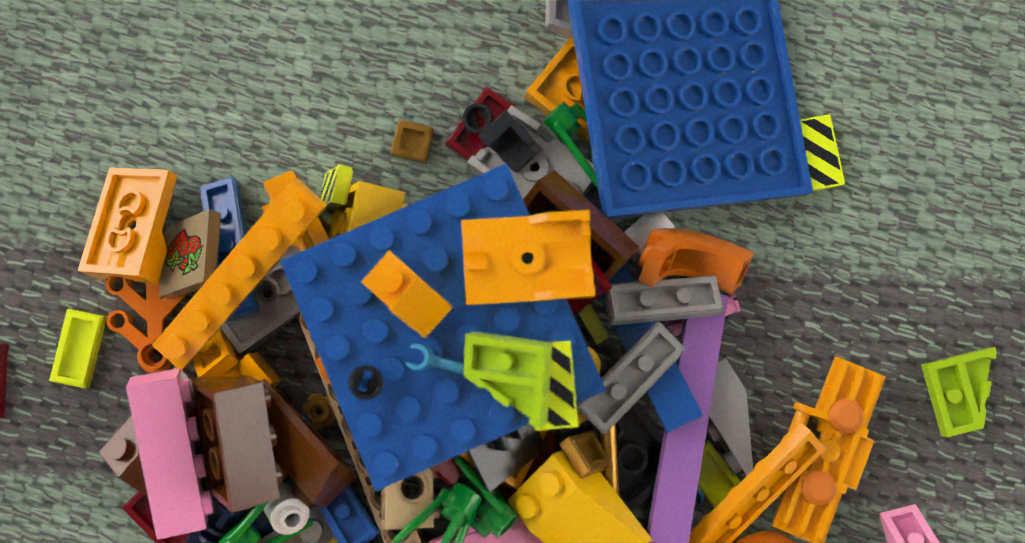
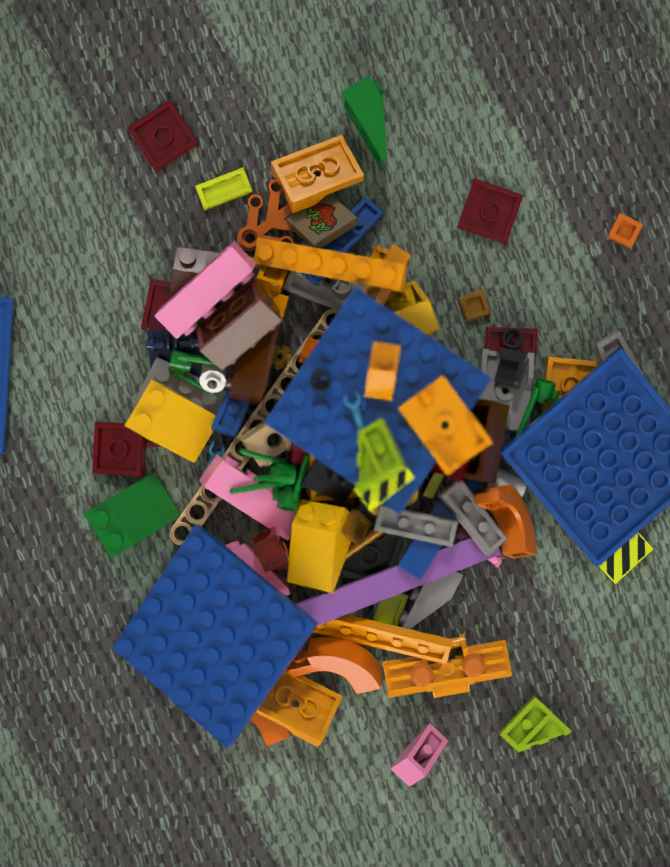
camera: 65 degrees right, 5 degrees up
(94, 120) = (366, 109): none -> green slope
(314, 55) = (490, 211): none -> dark red tile
(336, 187) = (418, 281): neon yellow tile -> none

